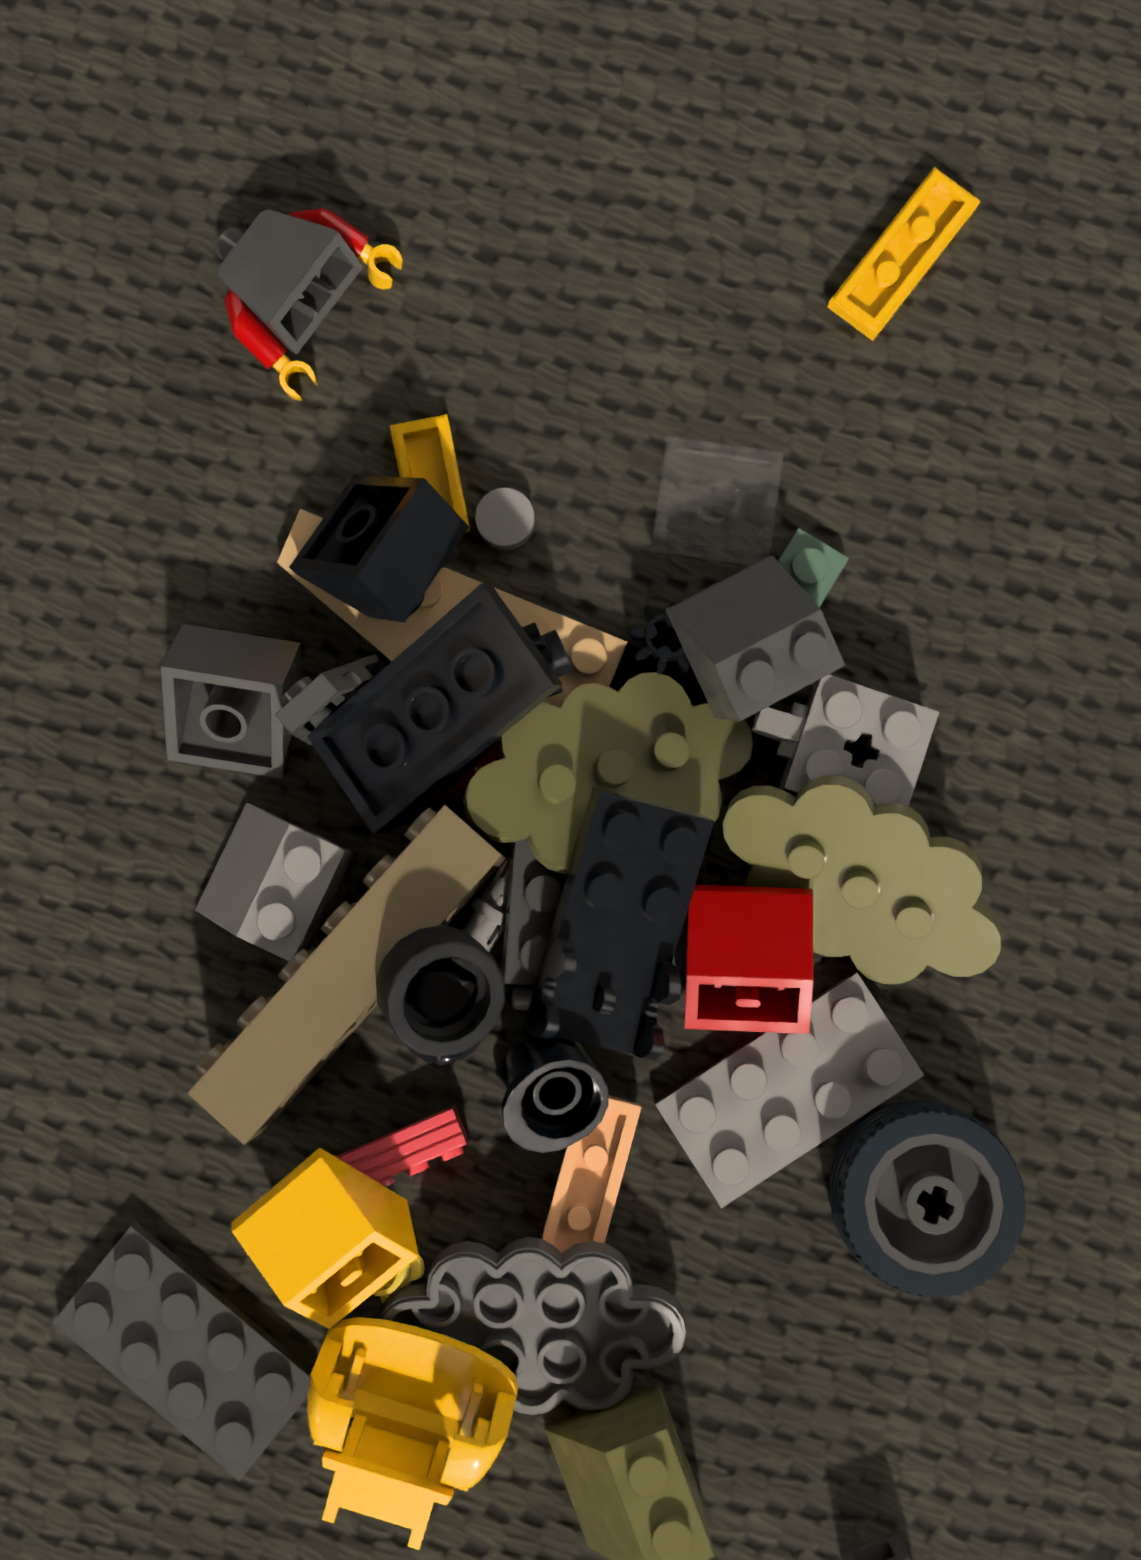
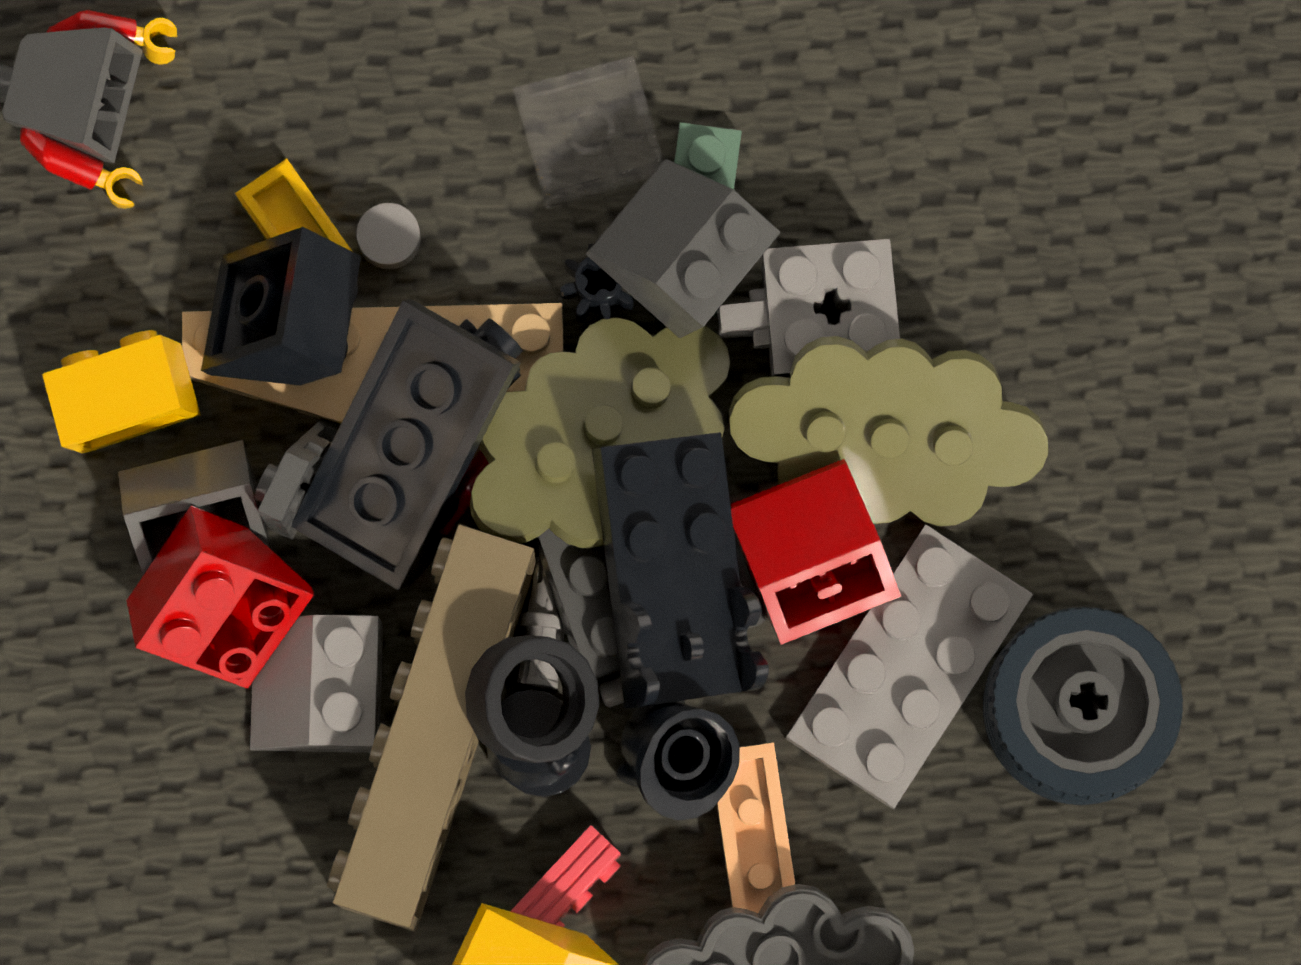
camera: 30 degrees left, 5 degrees down
(214, 555) = (120, 392): none -> yellow brick
(214, 772) = (216, 599): none -> red slope

